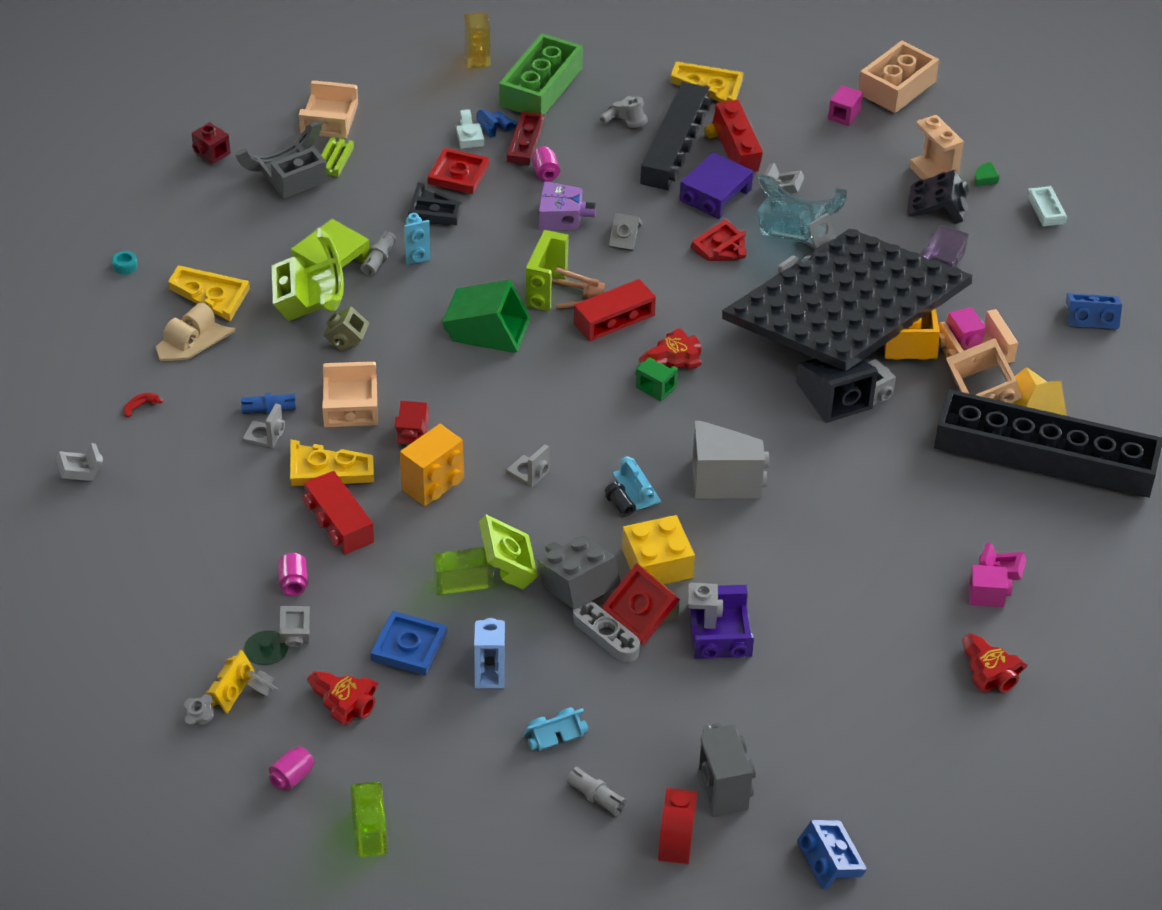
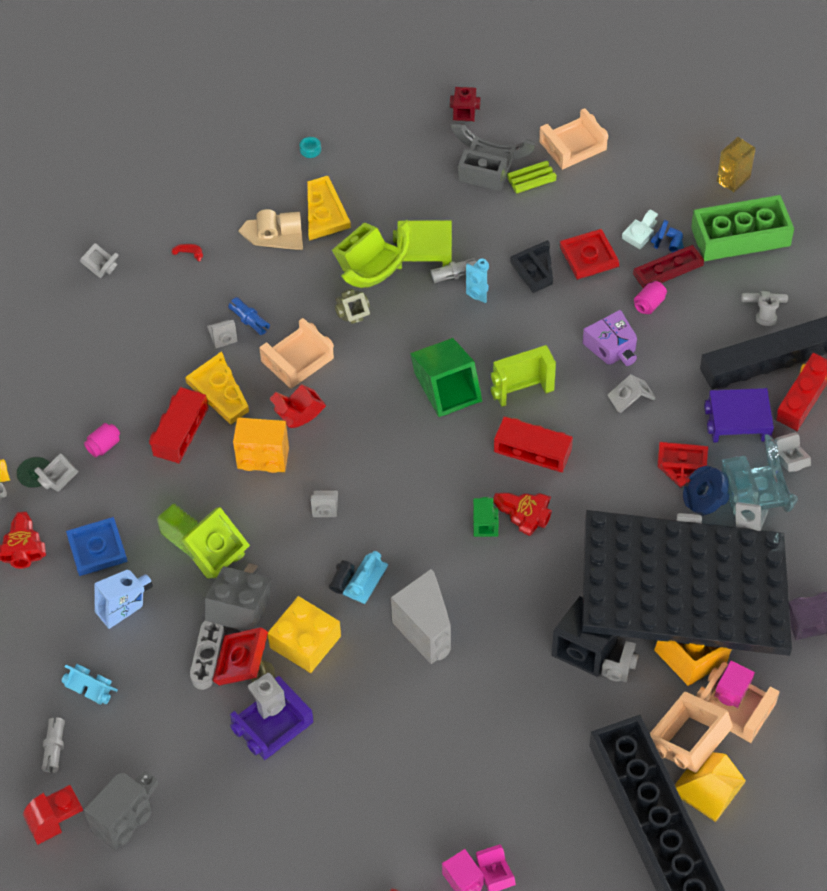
camera: 55 degrees right, 10 degrees up
(590, 288) = (541, 415): nougat plant -> none
(776, 253) = (715, 496): none -> dark blue plate

